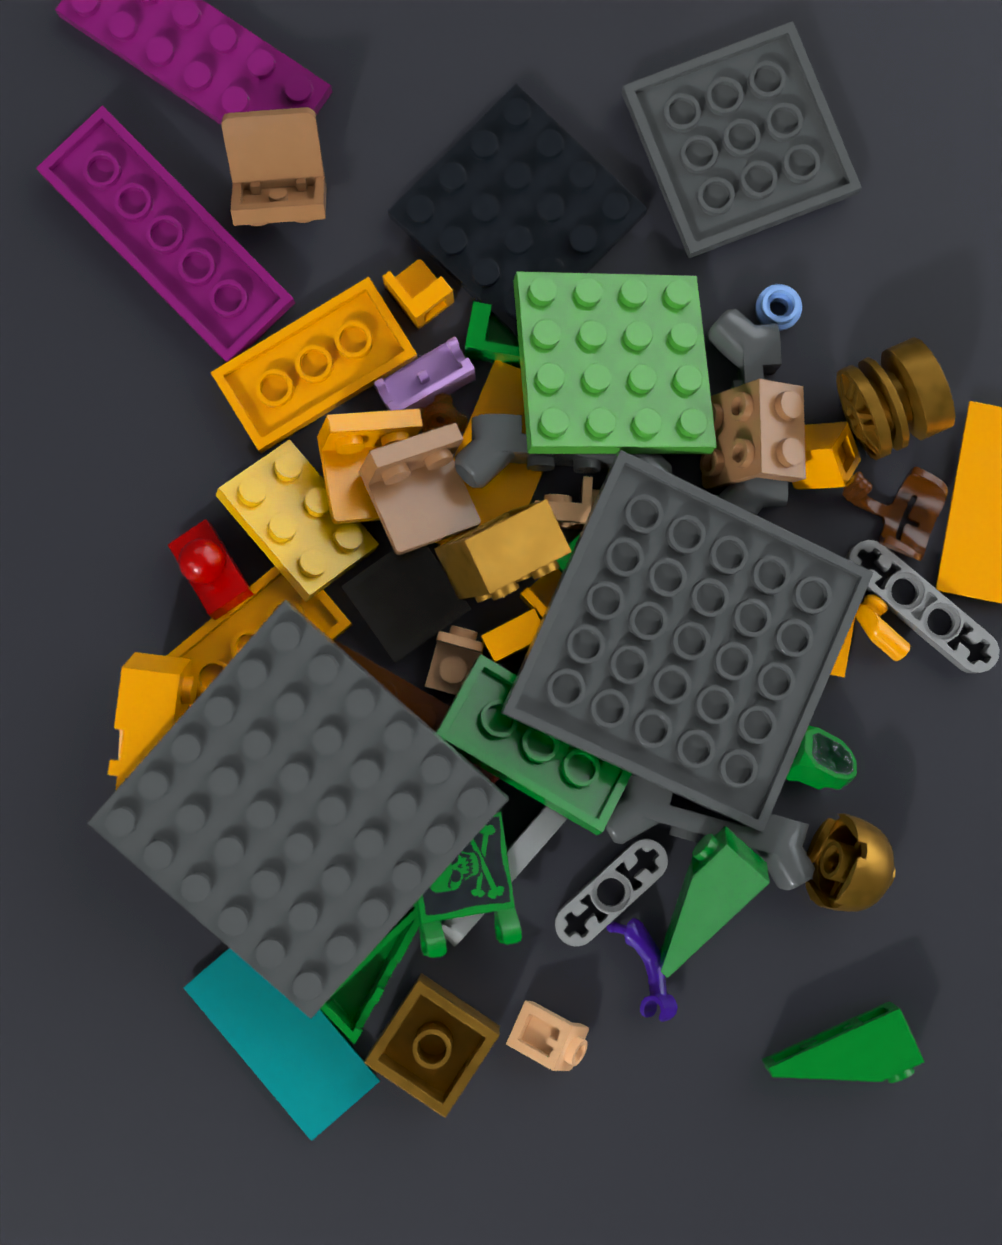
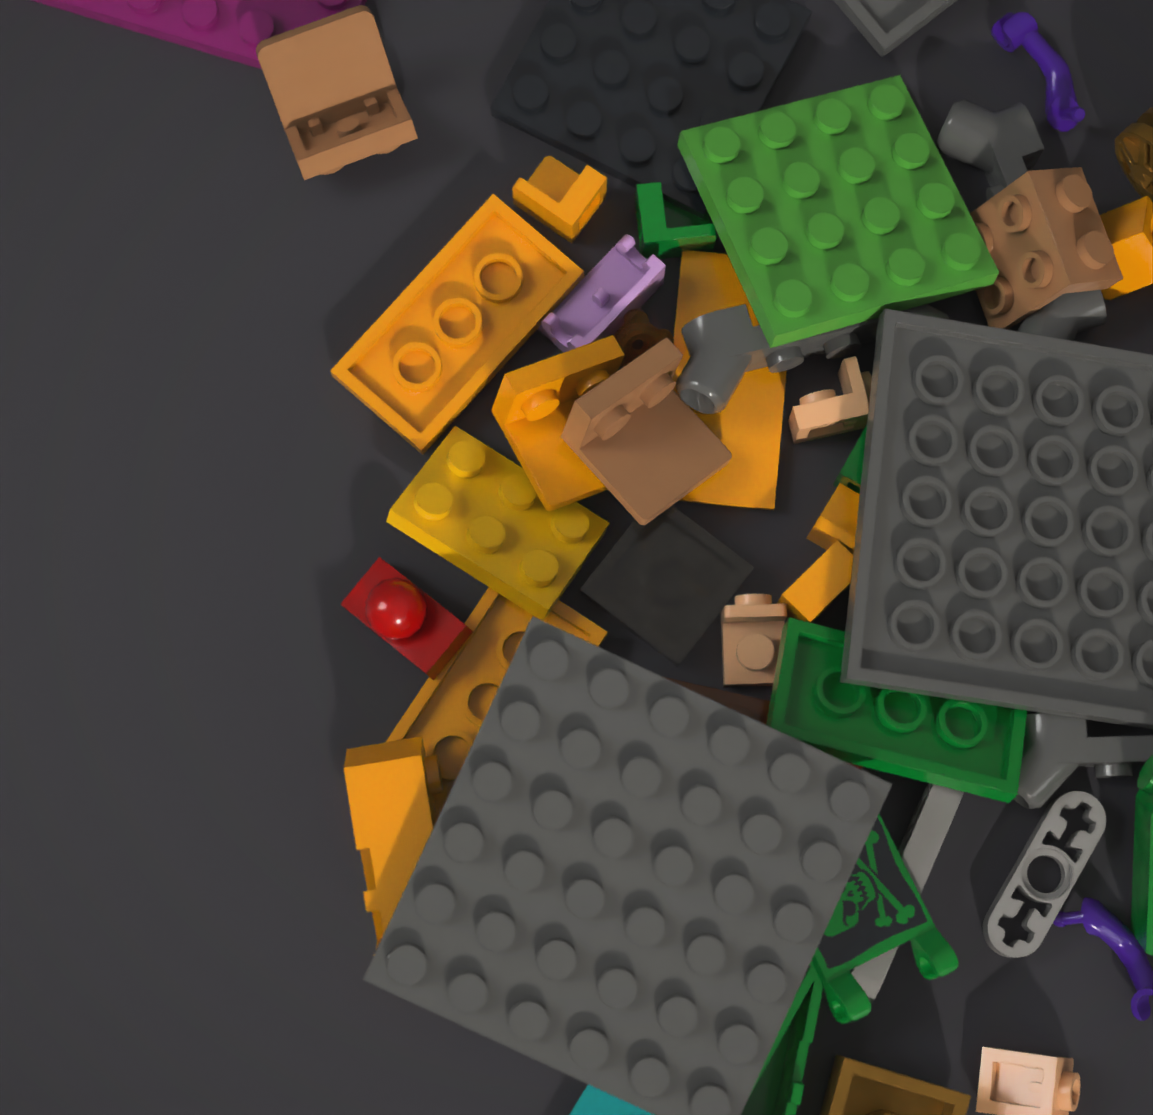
camera: 20 degrees left, 5 degrees down
(165, 235) = (220, 218): magenta plate -> none
(504, 552) = (778, 481): pearl gold brick -> none
(784, 295) = (1017, 68): light blue plate -> none
(810, 331) = (1060, 98): none -> dark purple piece

